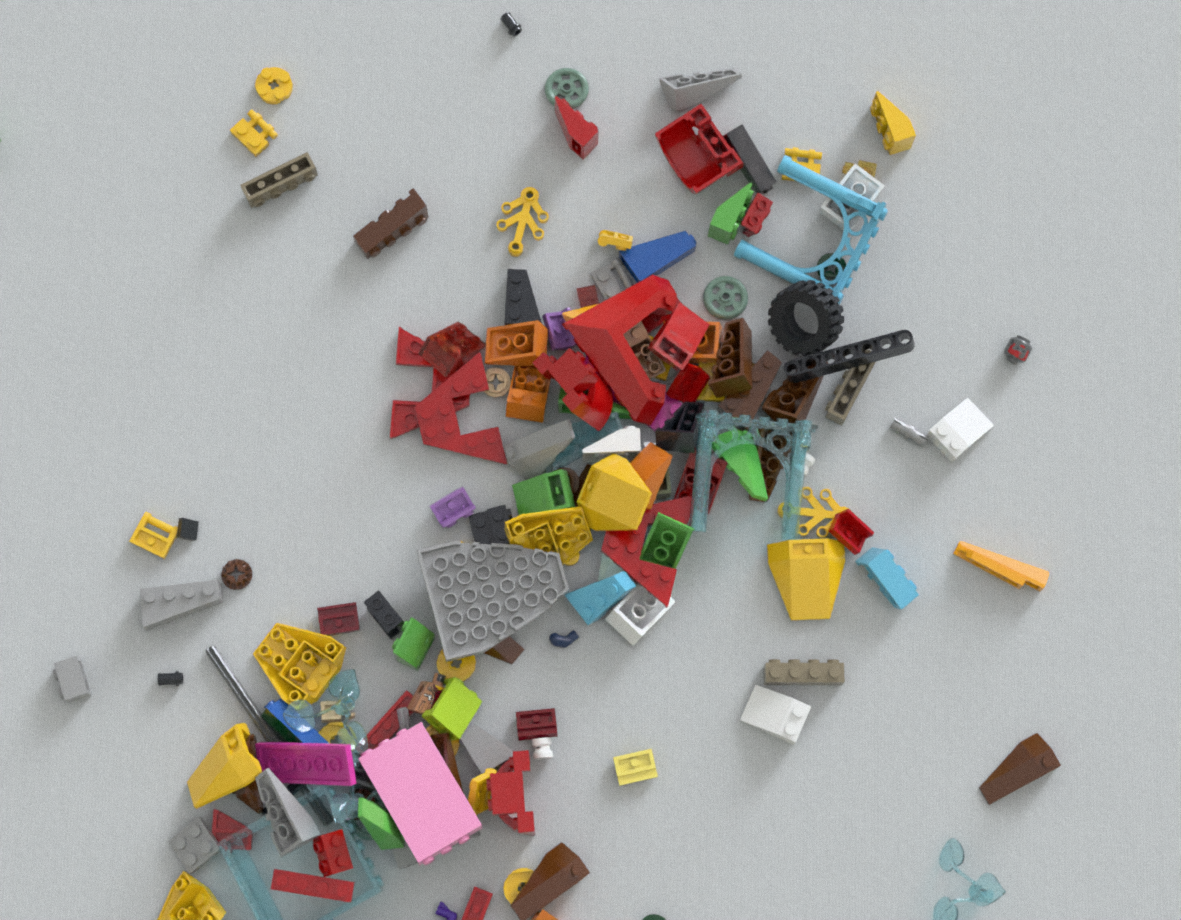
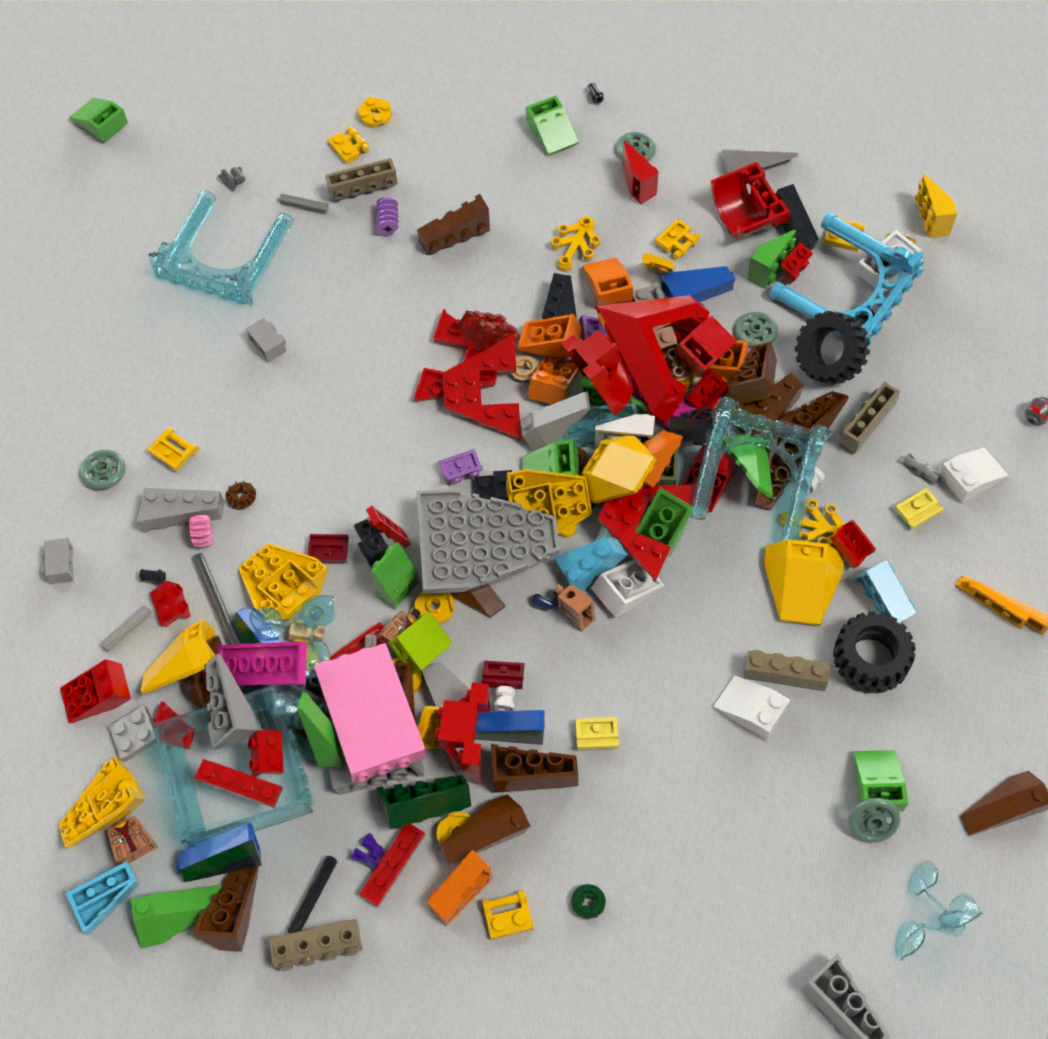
camera: 15 degrees right, 15 degrees down
(83, 554) = (102, 455): none -> sand green plate
(137, 202) = (232, 182): none -> dark grey piece
(146, 809) = (95, 691): none -> red slope
(158, 738) = (127, 627): none -> light grey axle
(181, 336) = (246, 277): none -> clear light blue arch
(187, 529) = (204, 448): black tile -> none
(195, 704) = (169, 603): none -> red bracket
(208, 624) = (201, 531): none -> bright pink gear
(221, 392) = (266, 339): none -> light grey brick
(222, 216) = (304, 203): none -> light grey axle
(315, 221) = (387, 216): none -> medium lavender piece
(396, 595) = (386, 525): none -> red plate
(471, 77) = (551, 125): none -> slope
(485, 865) = (423, 800): none -> dark green wedge
(555, 776) = (511, 726): none -> blue slope
(564, 264) = (609, 281): none -> orange slope
(580, 815) = (531, 769): none -> reddish brown wedge
(598, 646) = (575, 606): none -> nougat torso
(624, 196) = (673, 235): none -> yellow plate
(856, 349) = (871, 385): black beam -> none
(897, 620) = (883, 630): none -> black tyre
(902, 767) = (880, 777): none -> bright green slope
(902, 810) = (874, 825): none -> sand green plate
(910, 478) = (919, 508): none -> light yellow plate

